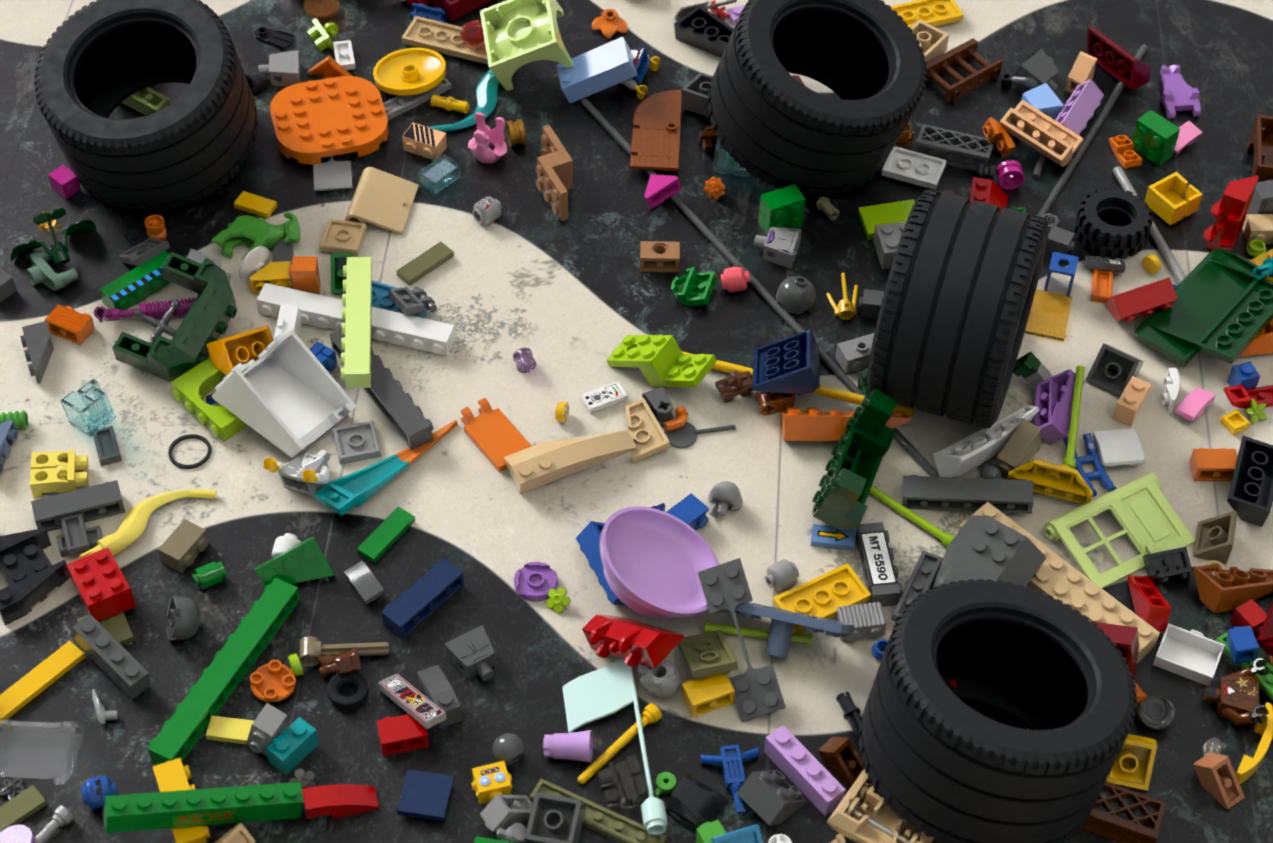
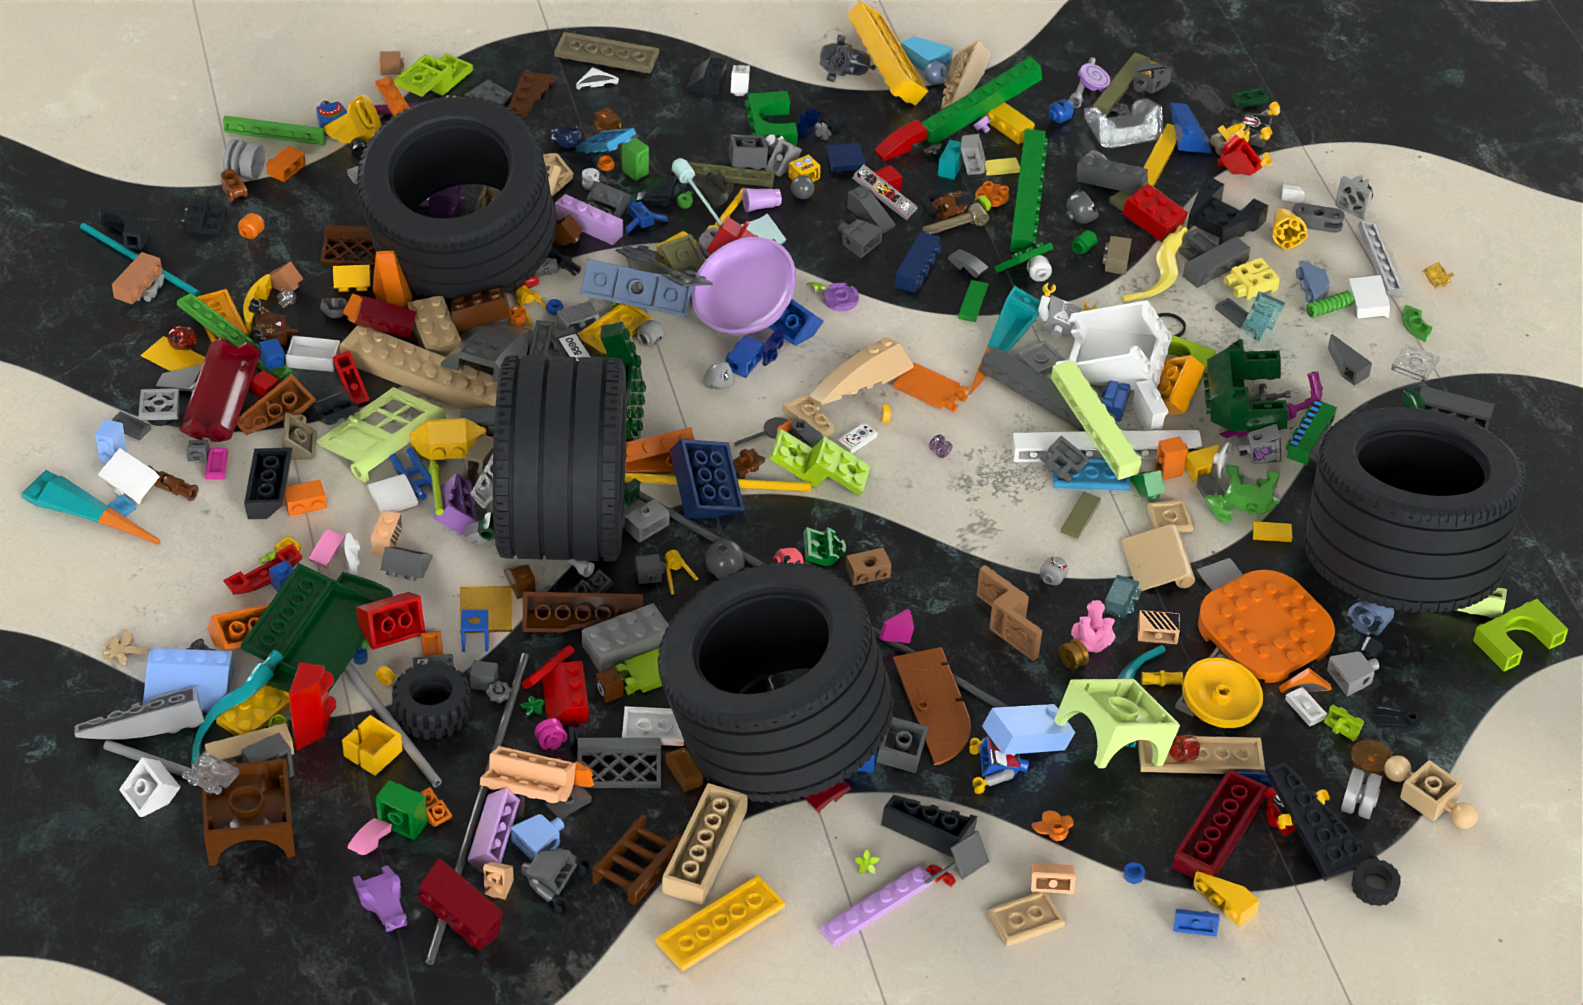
camera: 160 degrees right, 5 degrees down
(70, 324) = (1340, 385): orange brick -> none

